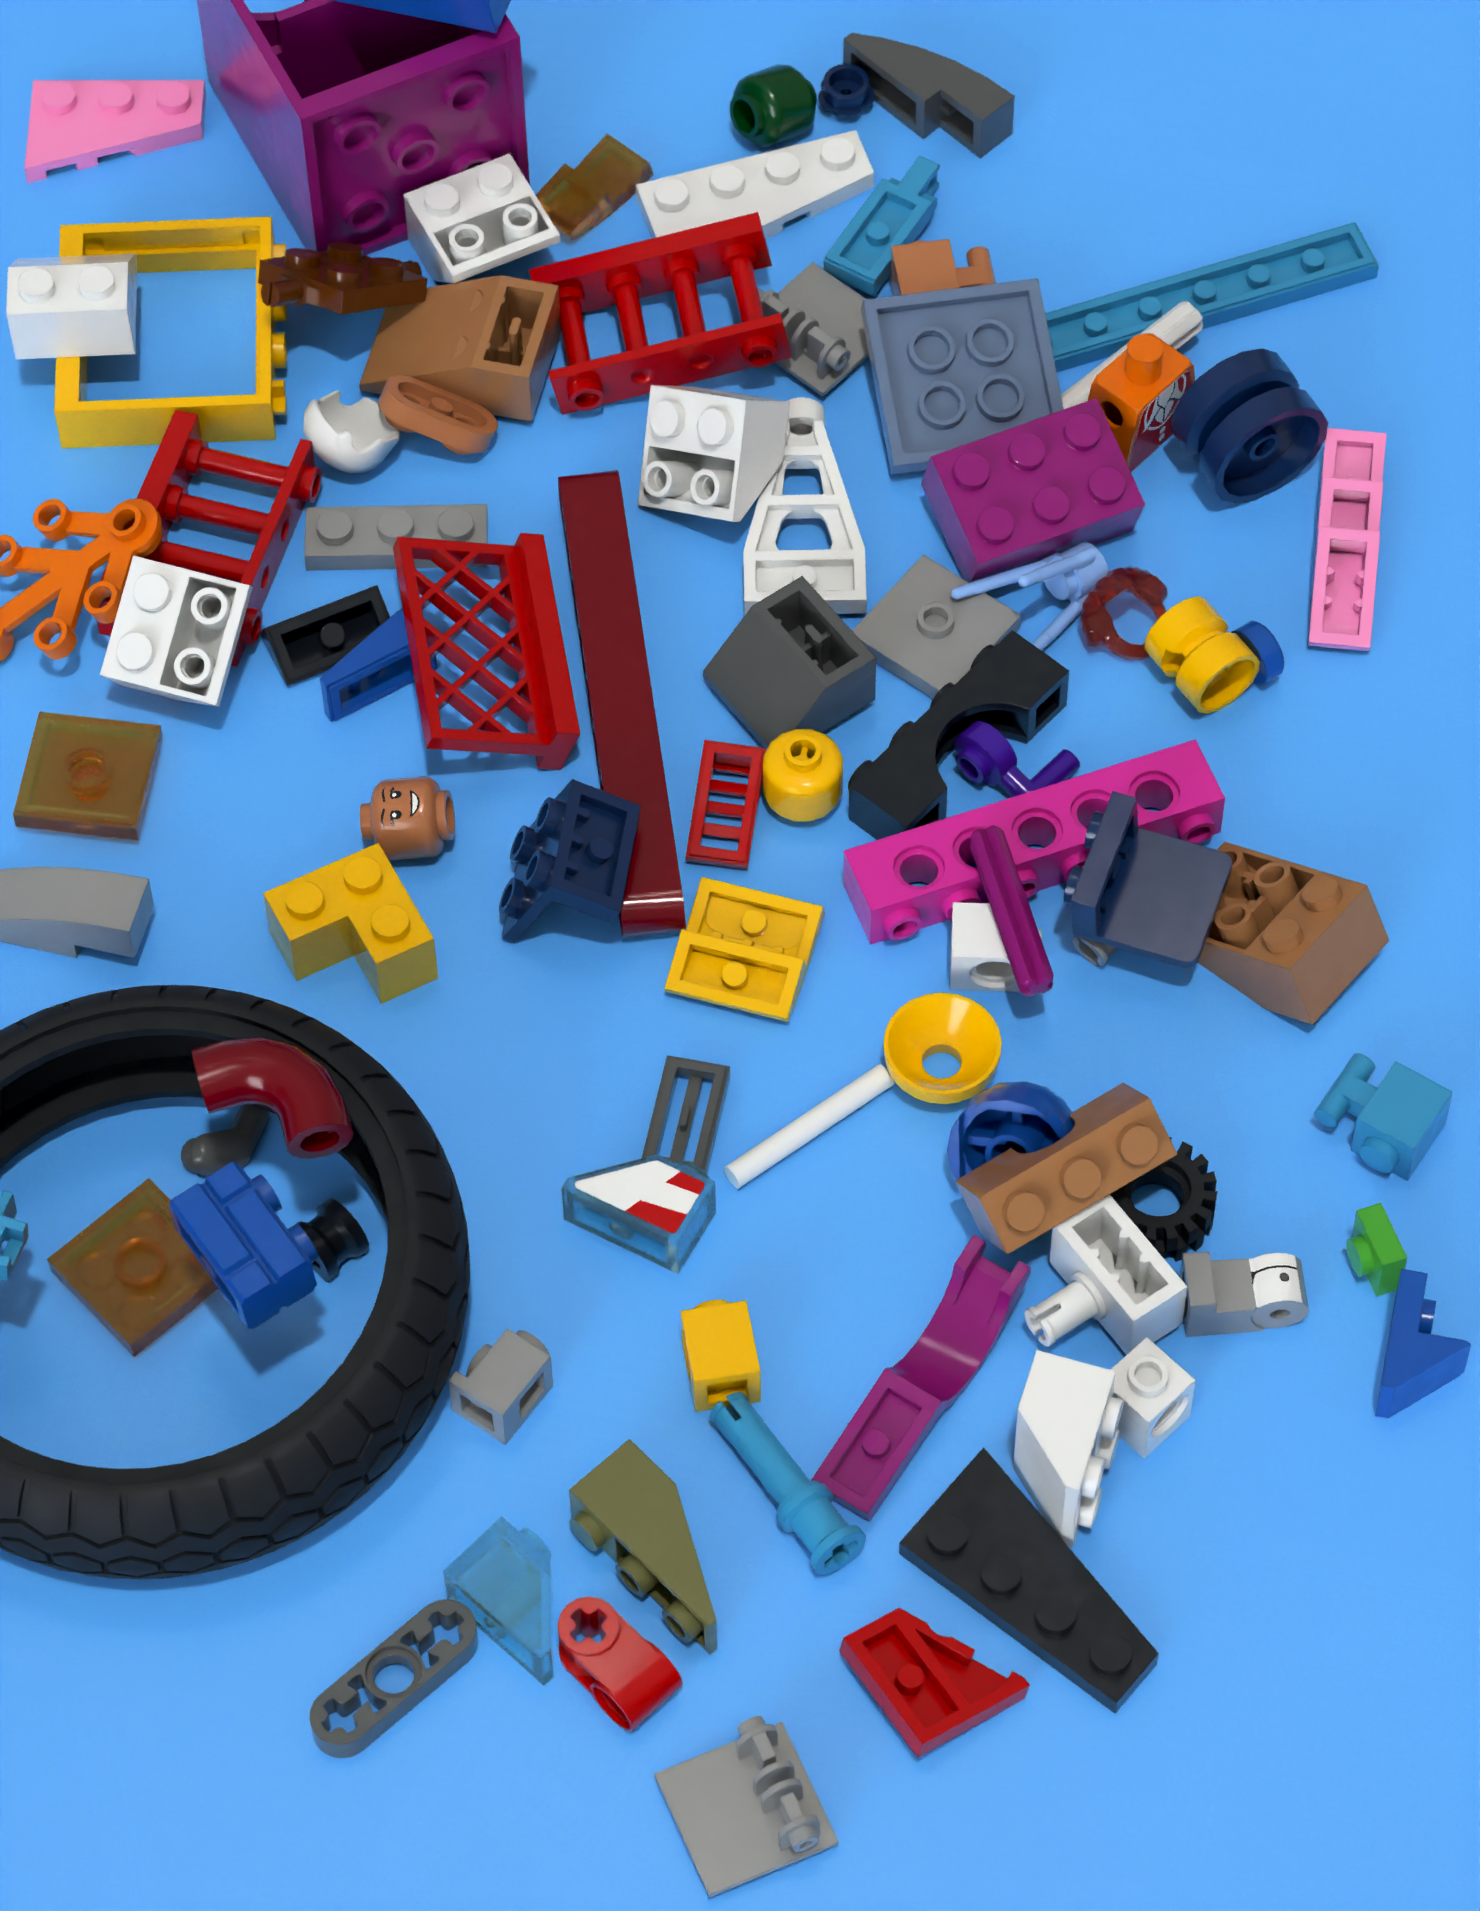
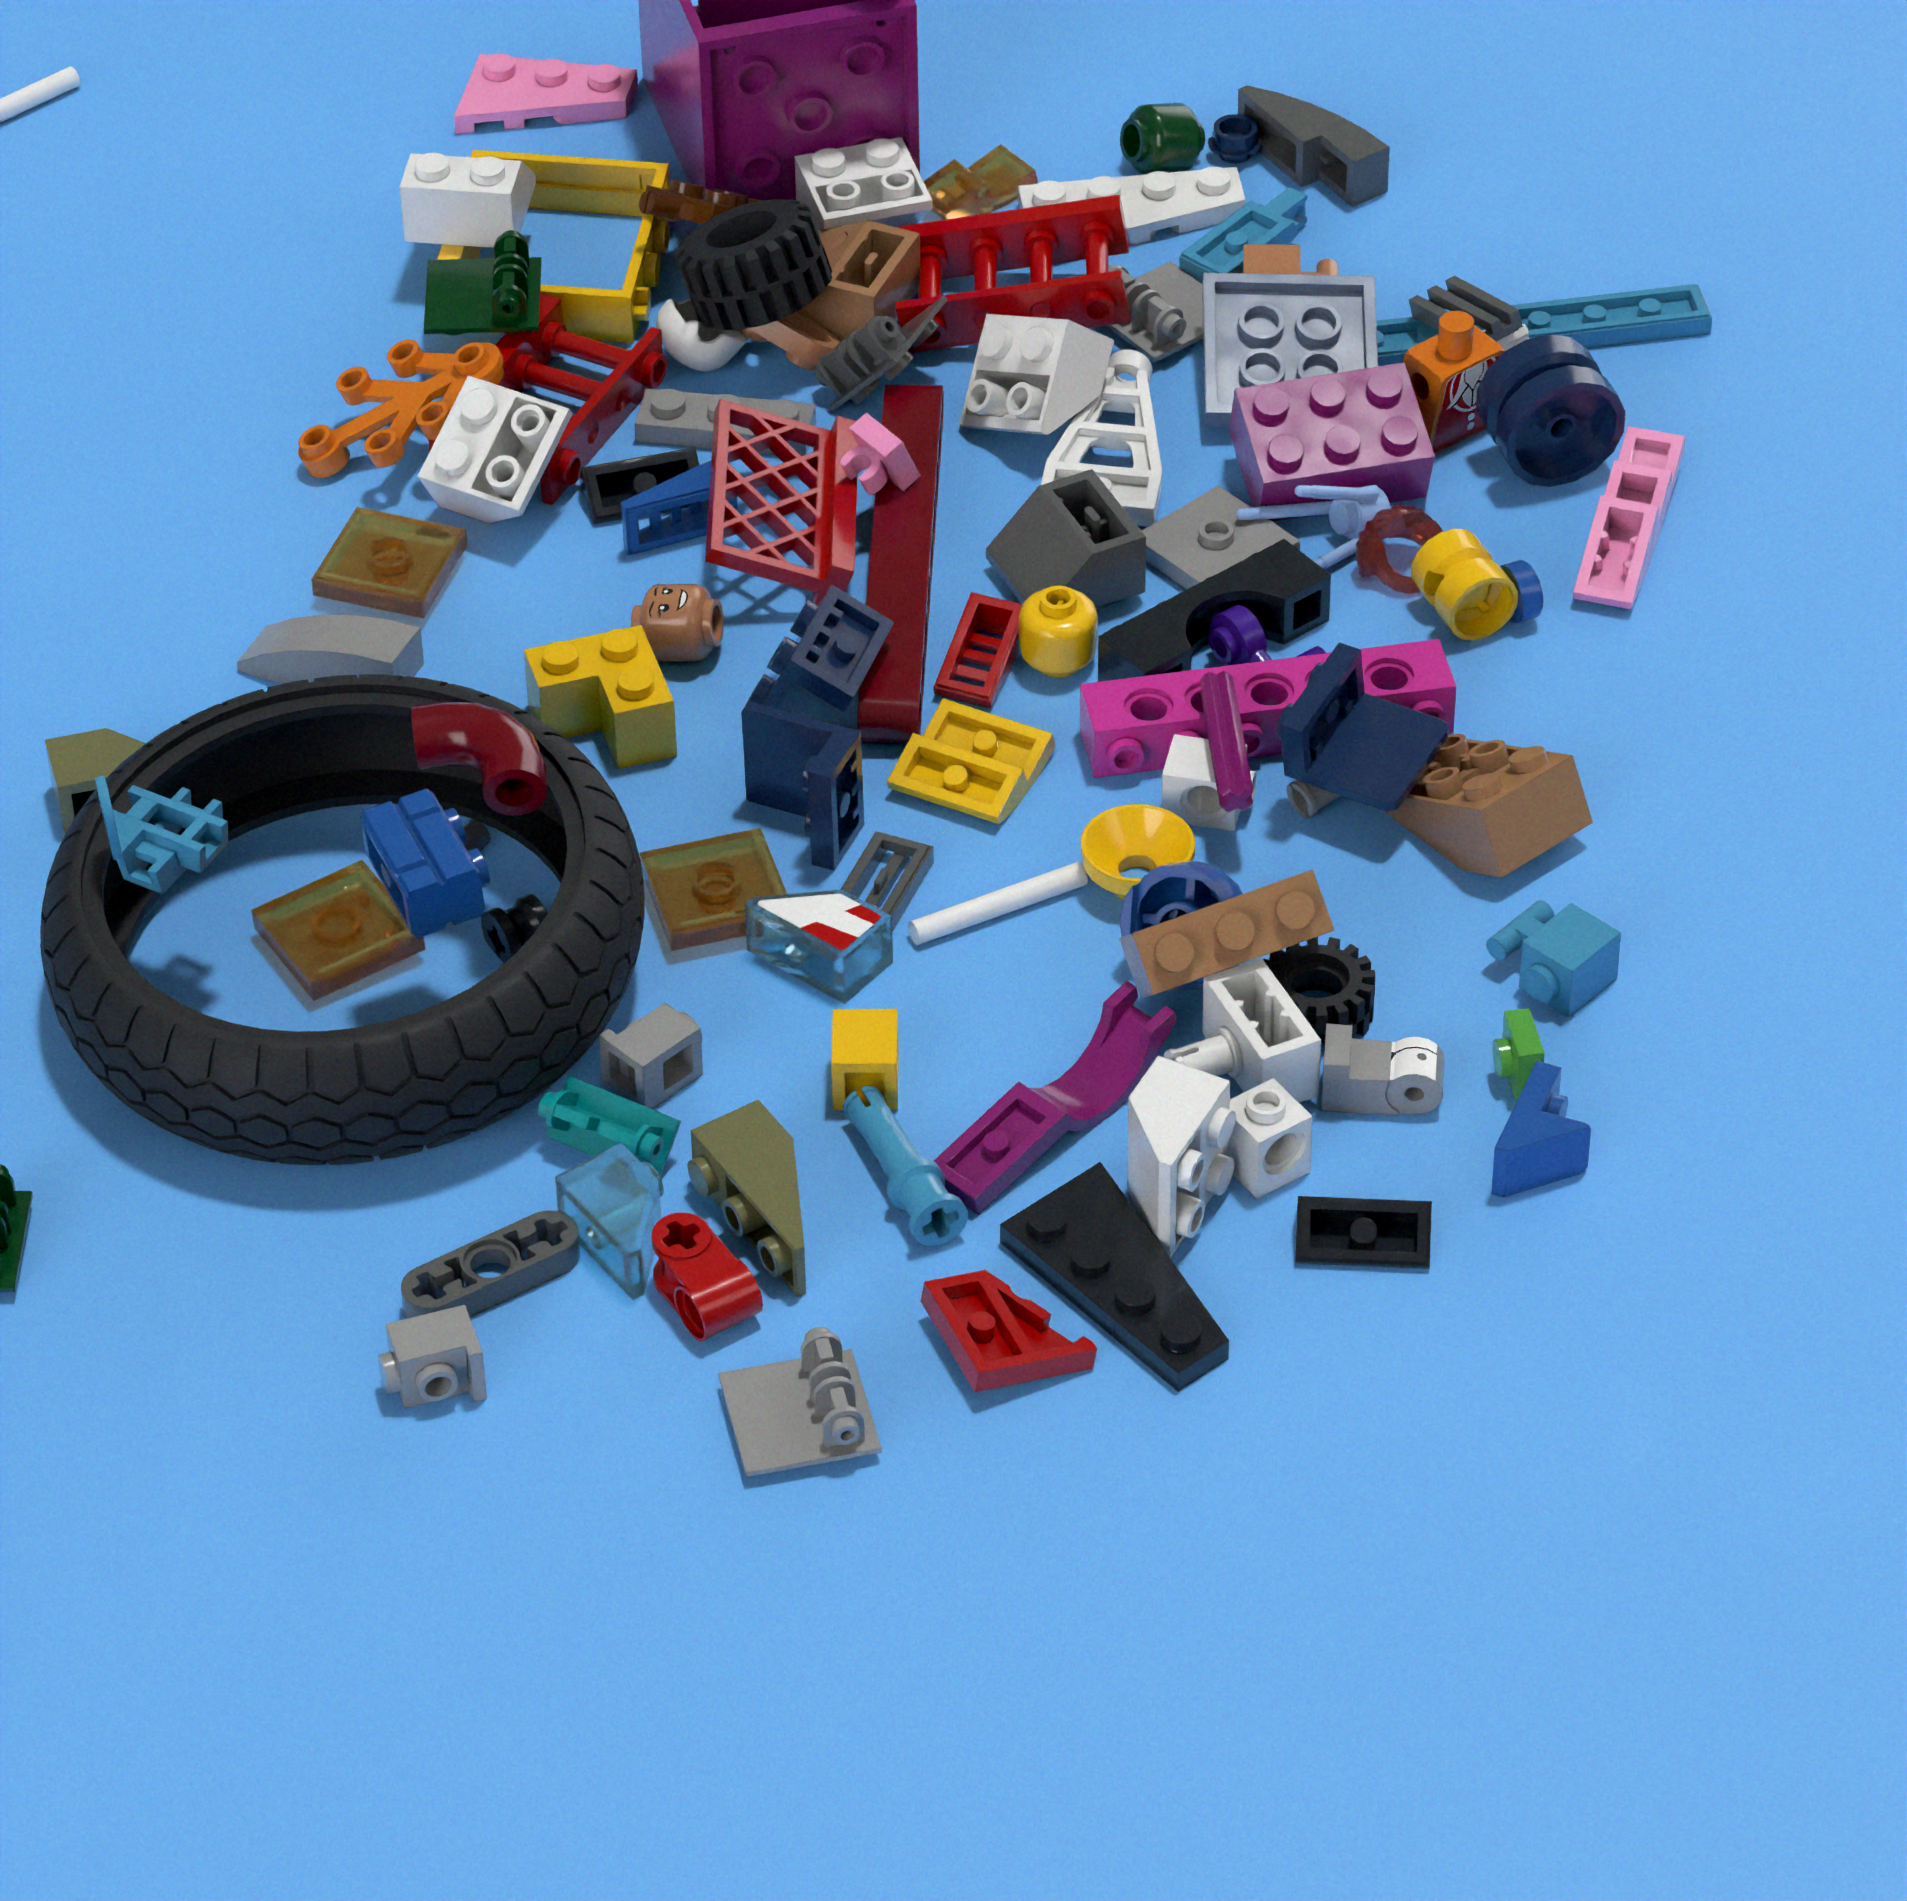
camera: 10 degrees right, 15 degrees down
(118, 423) = (485, 292): none -> dark green hinge
(363, 1809) = (433, 1358): none -> light grey brick
(398, 359) = (754, 264): none -> black tyre
(479, 1480) = (599, 1119): none -> teal hinge
(516, 1153) = (705, 885): none -> clear orange plate
(545, 444) = (873, 351): none -> dark grey hinge
(581, 586) = (880, 454): none -> bright pink tile
(592, 1003) = (806, 771): none -> dark blue bracket
(1143, 299) = (1488, 312): none -> dark grey tile
(1261, 1491) = (1363, 1232): none -> black slope

